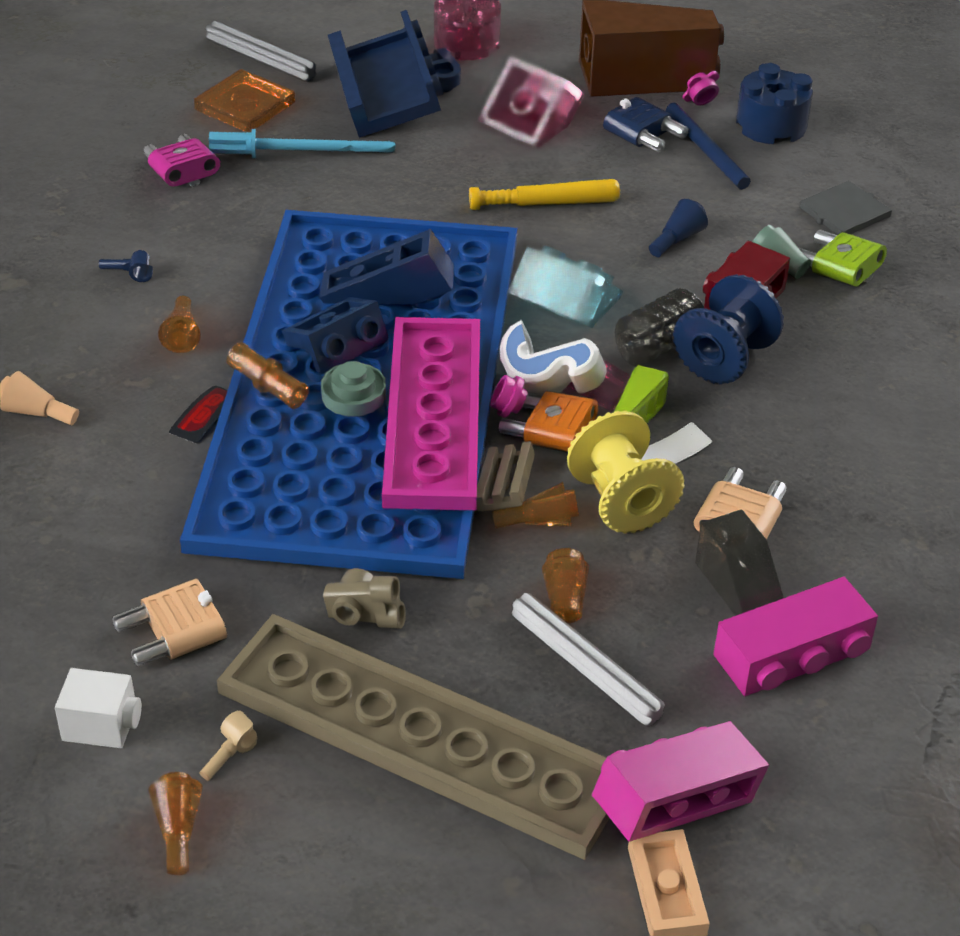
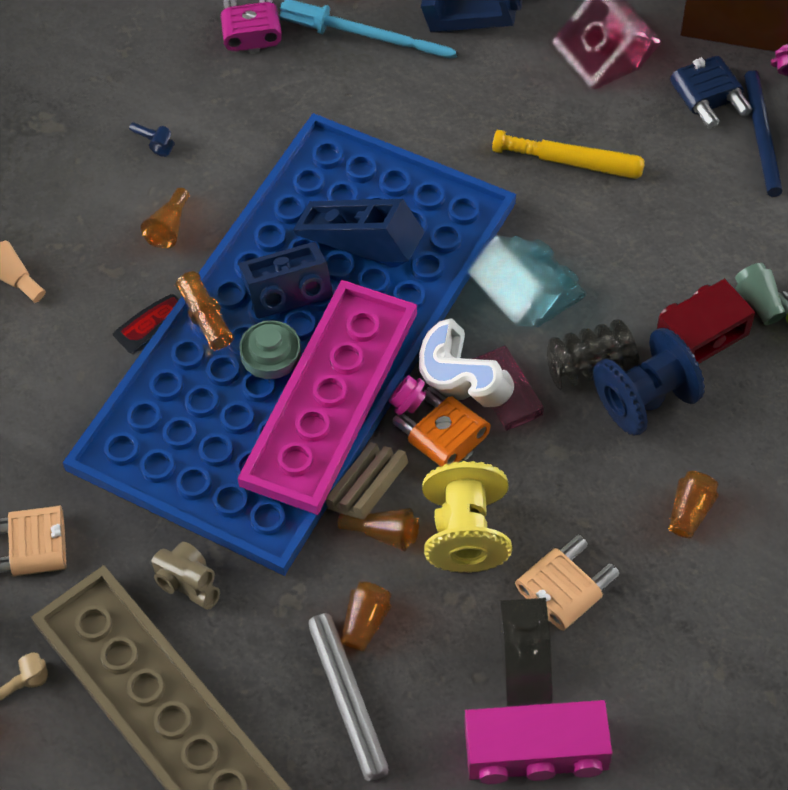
camera: 25 degrees right, 15 degrees up
(644, 392) = (526, 436): lime slope -> none
(679, 445) = (540, 492): white sticker -> none
(686, 220) = (685, 228): dark blue cone -> none
(819, 413) = (692, 502): none -> clear orange cone

